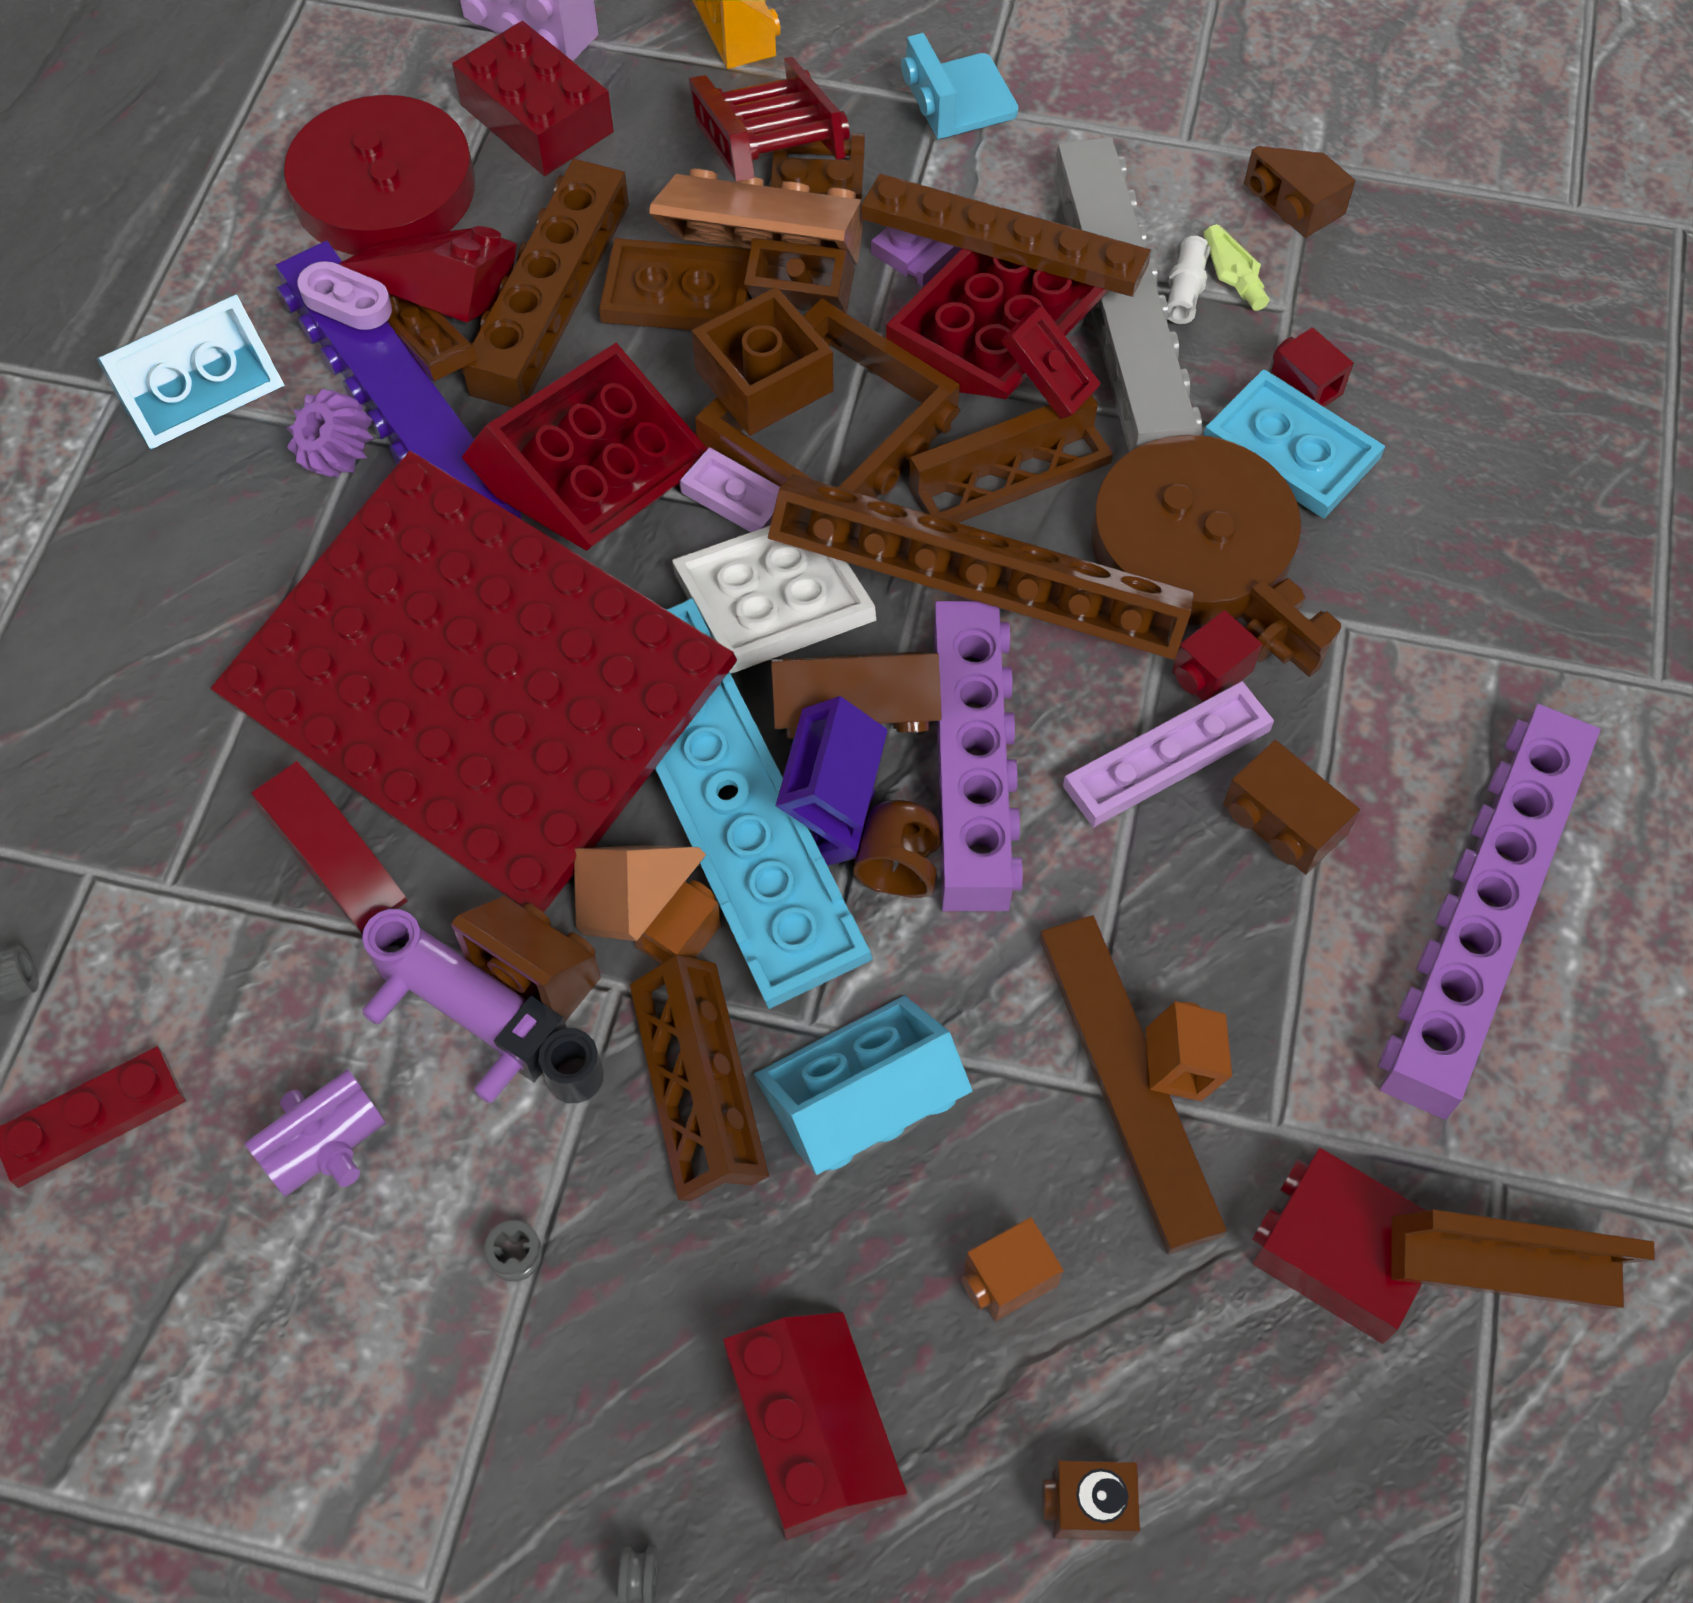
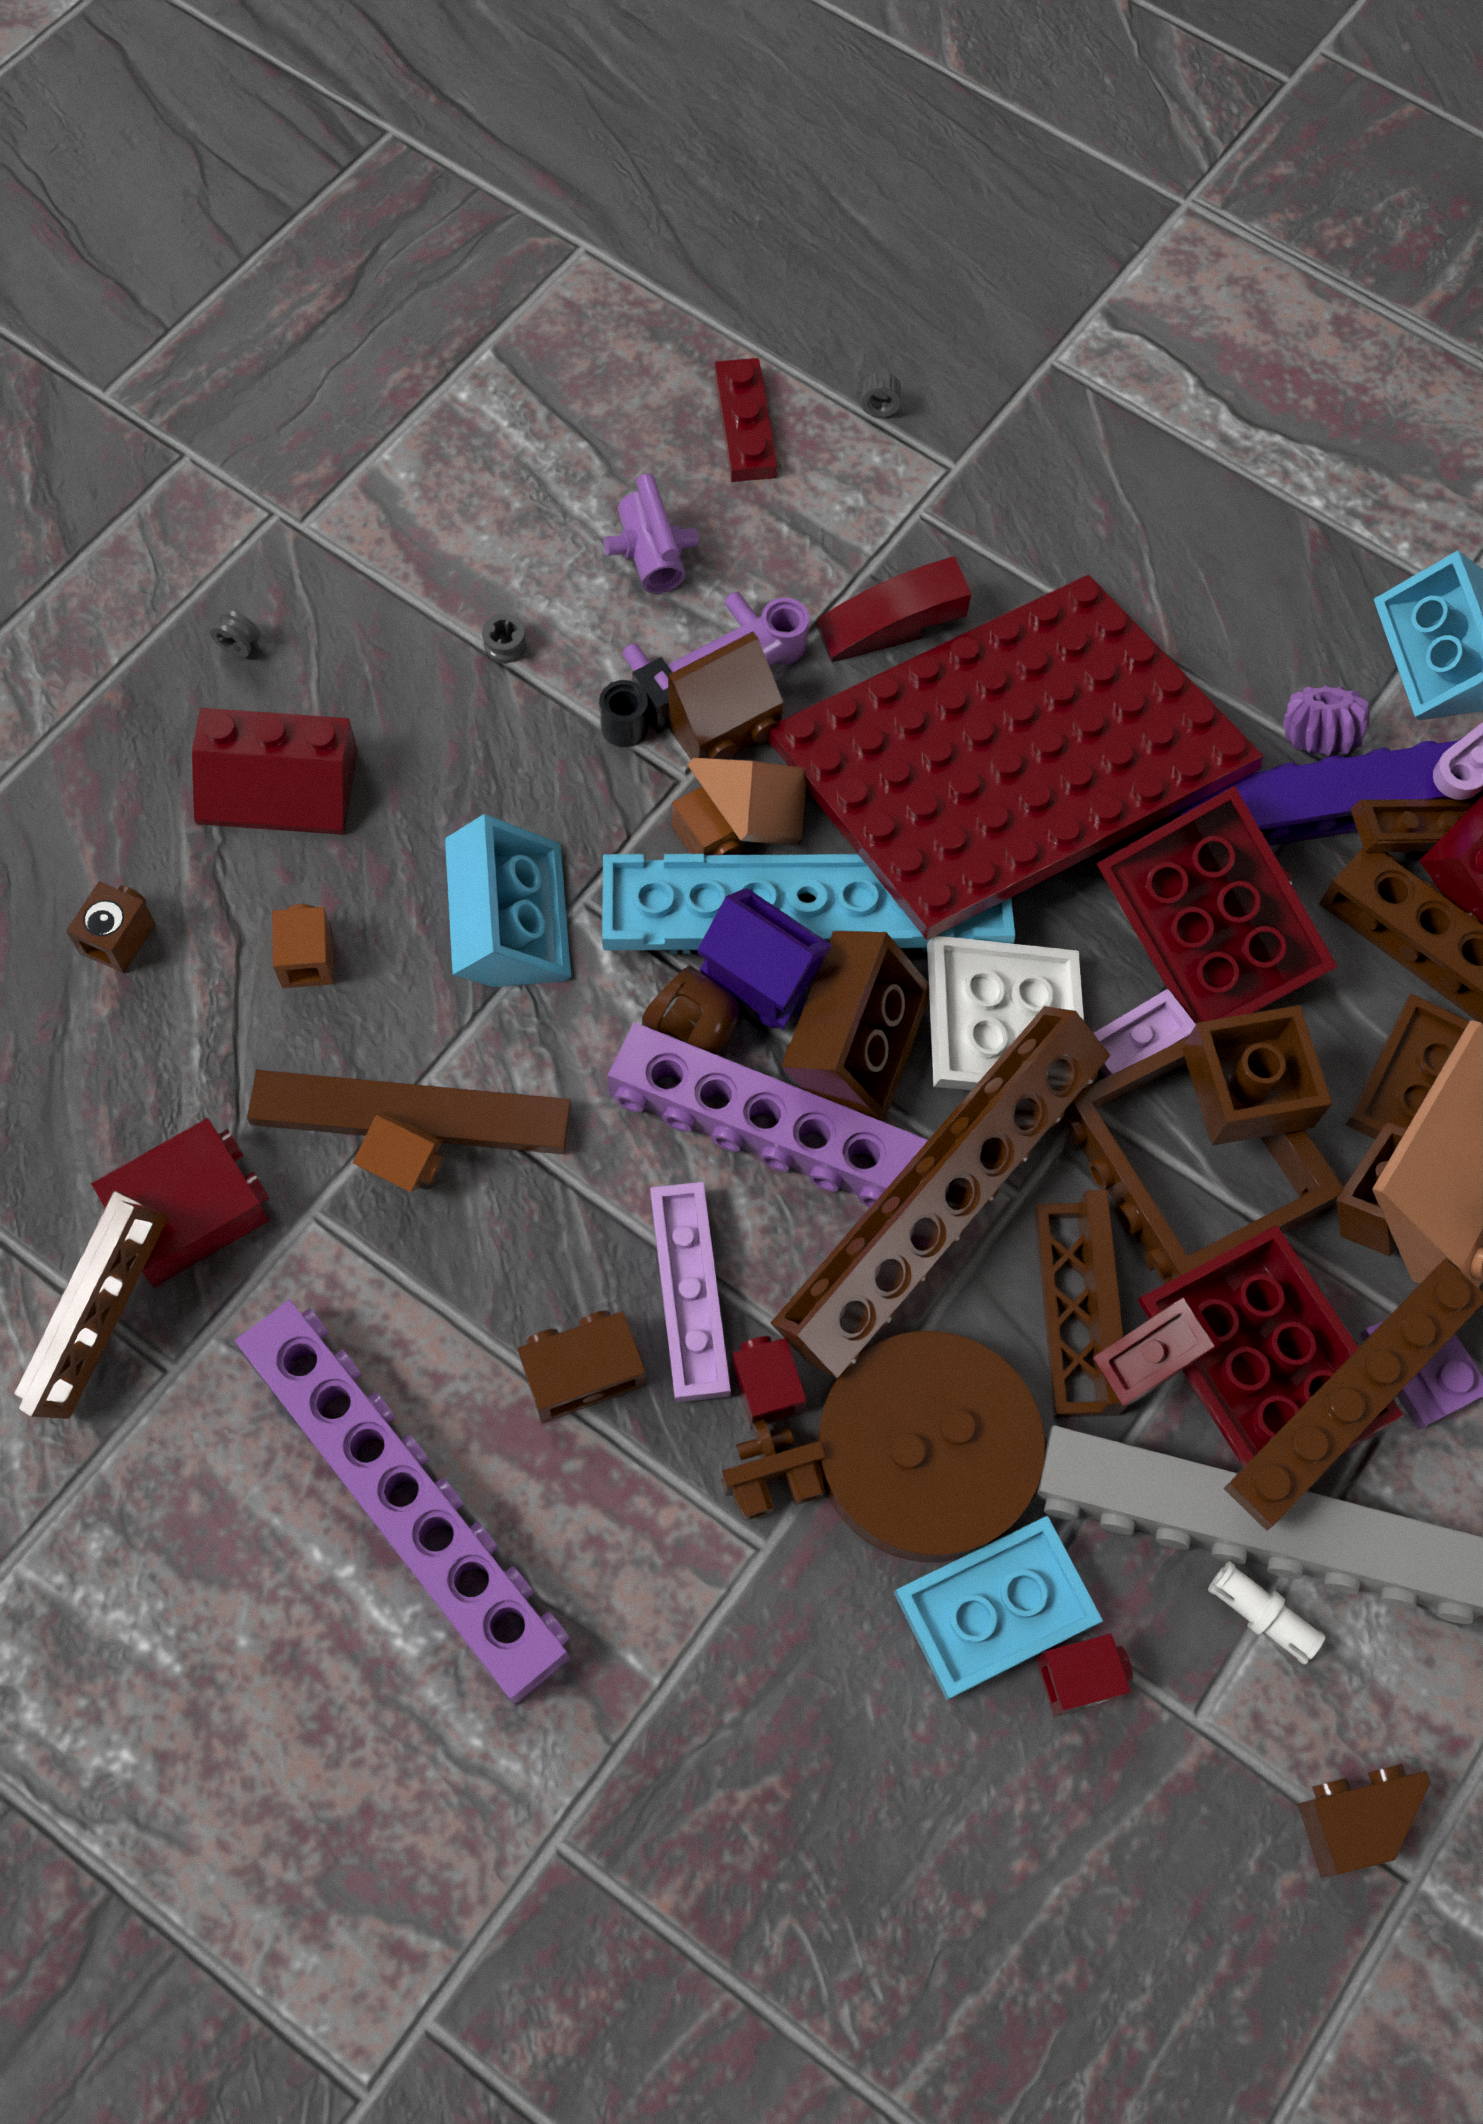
camera: 110 degrees right, 5 degrees up
(707, 1067) = (574, 800): reddish brown fence -> none
(1236, 266) = (1274, 1686): yellowish green piece -> none

